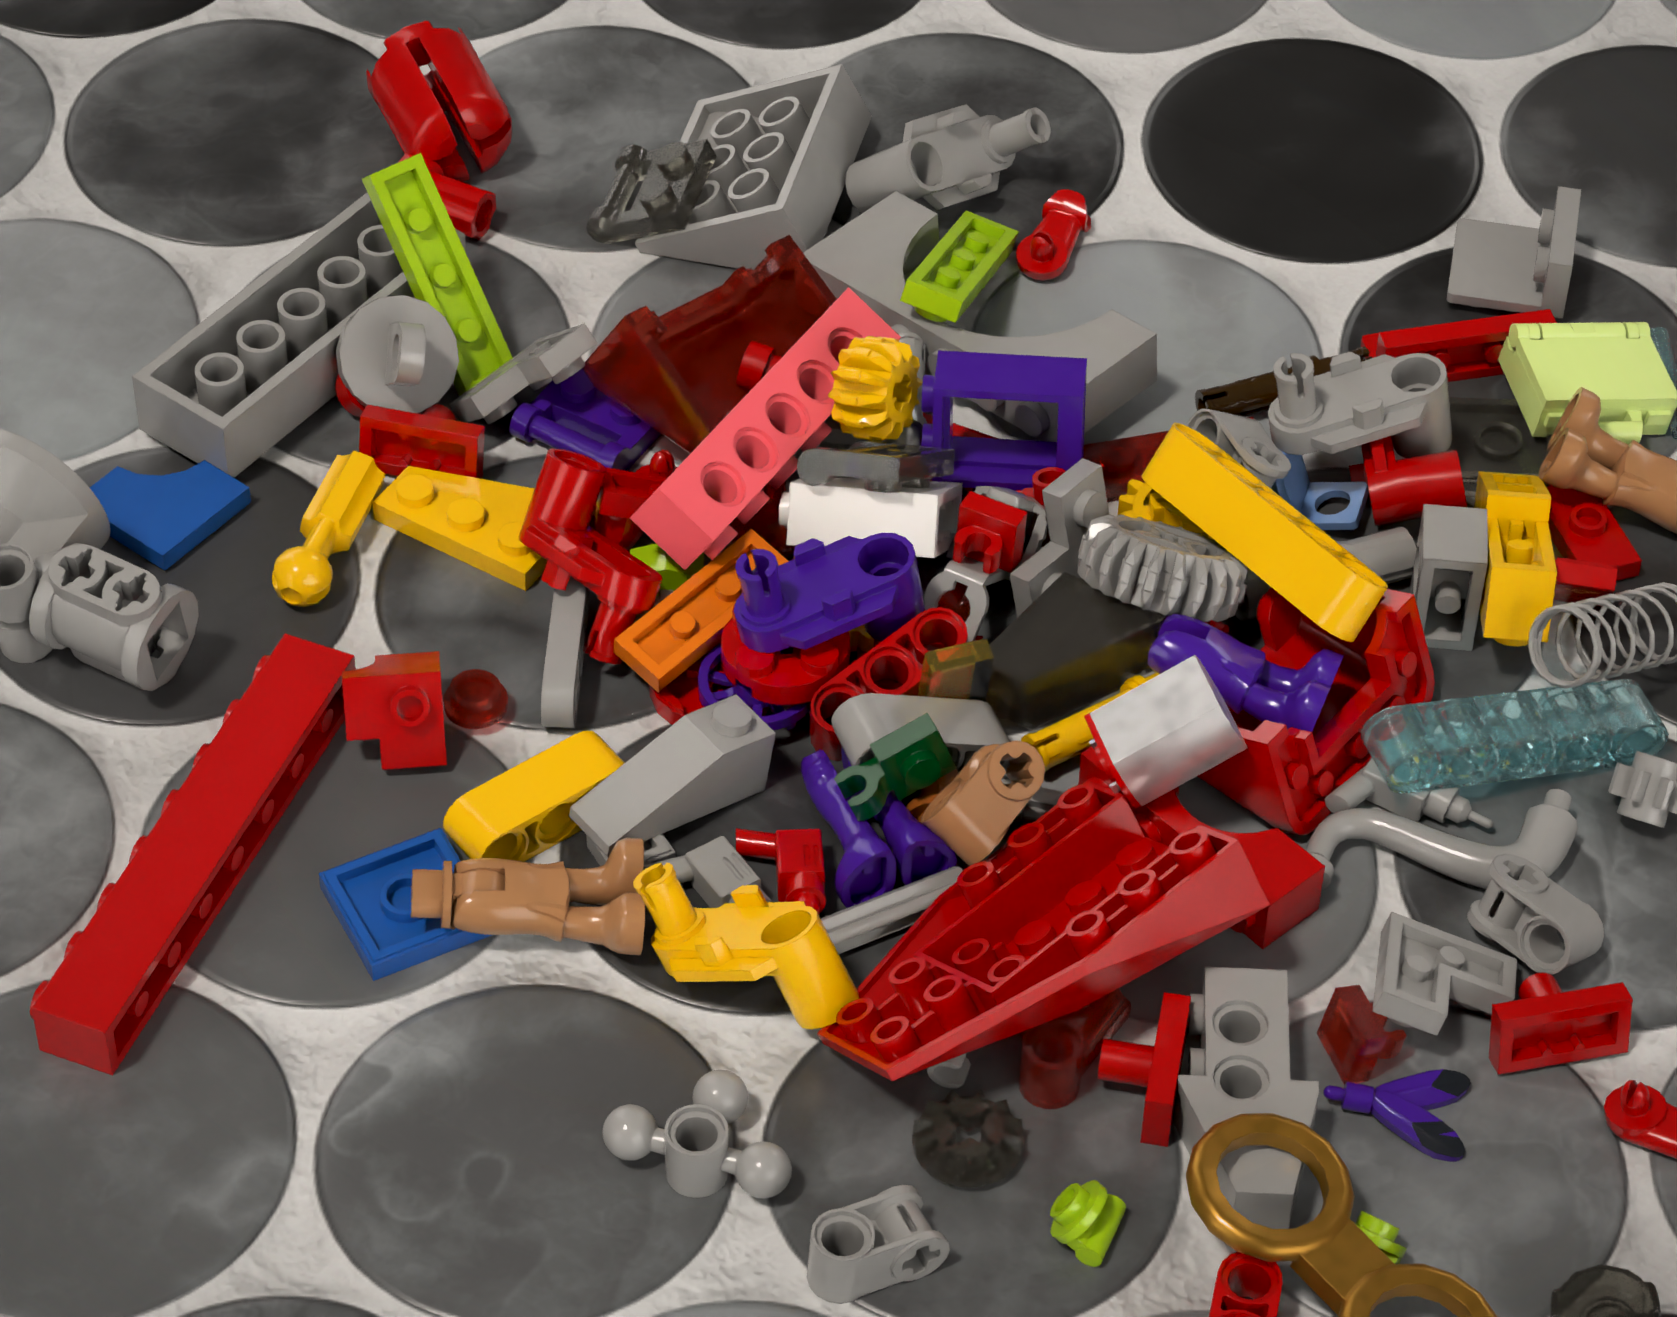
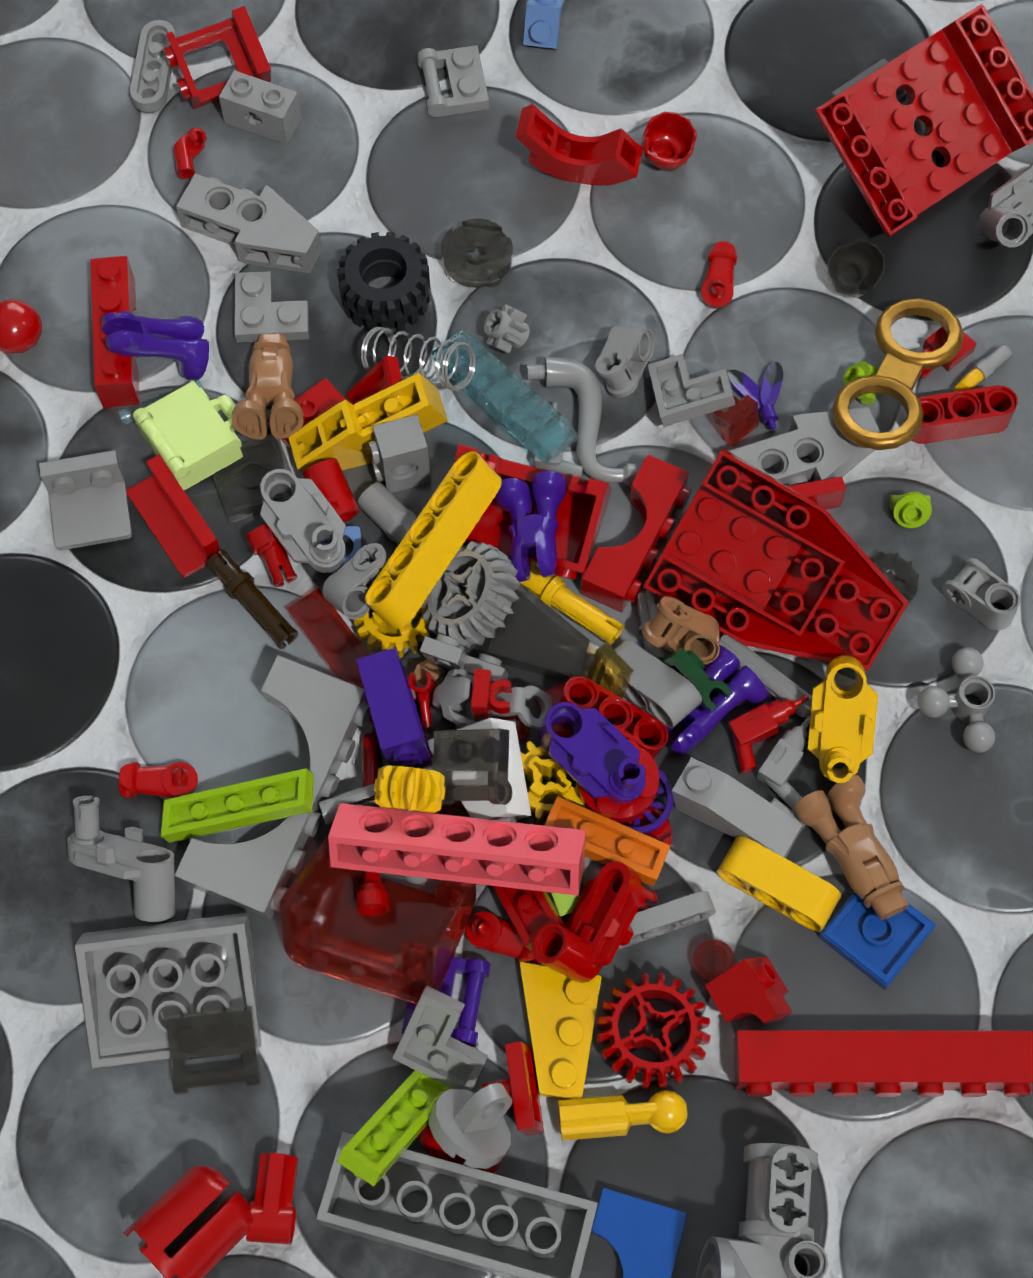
camera: 110 degrees left, 20 degrees up
(379, 584) = (667, 1020): none -> red gear
(1164, 733) = (623, 536): flat silver piece -> none
(1558, 1025) = (684, 334): red tile -> none

